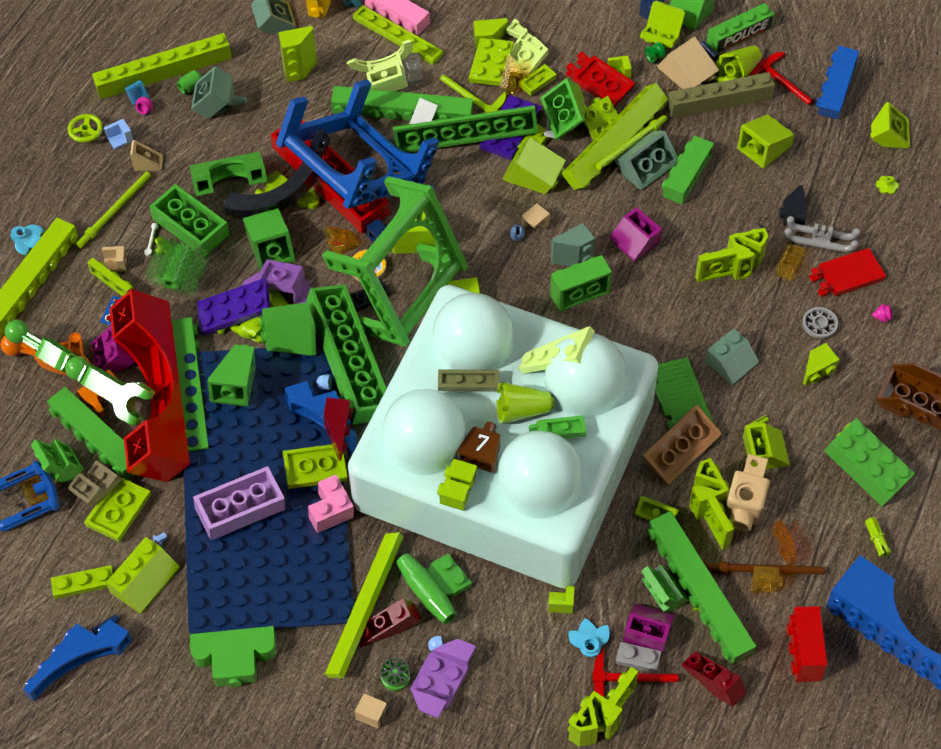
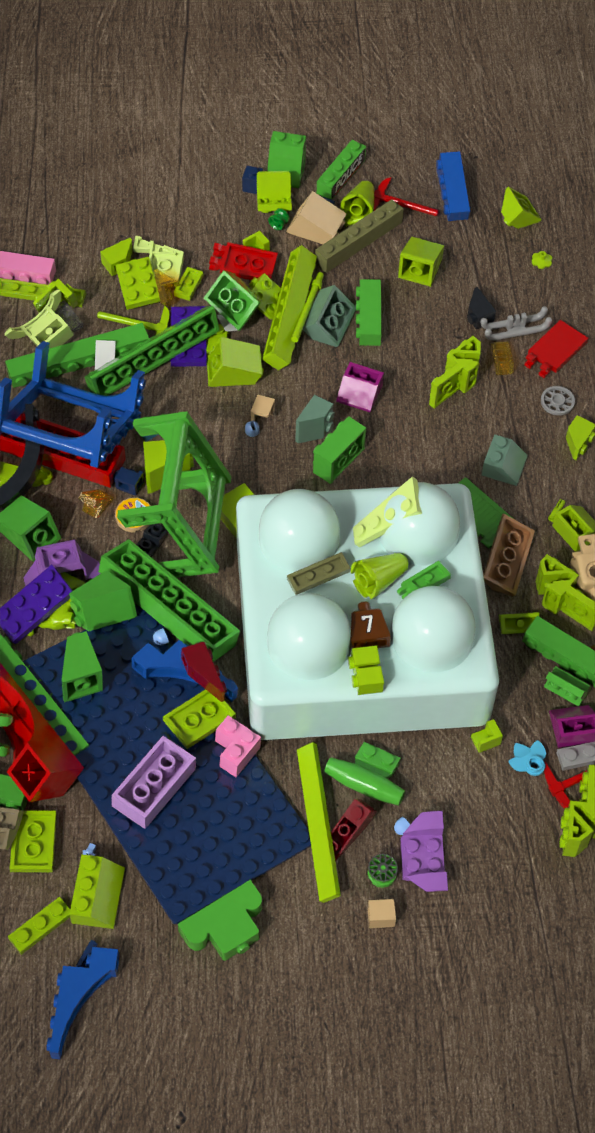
camera: 30 degrees left, 0 degrees up
(419, 45) = (67, 294): none -> lime bracket

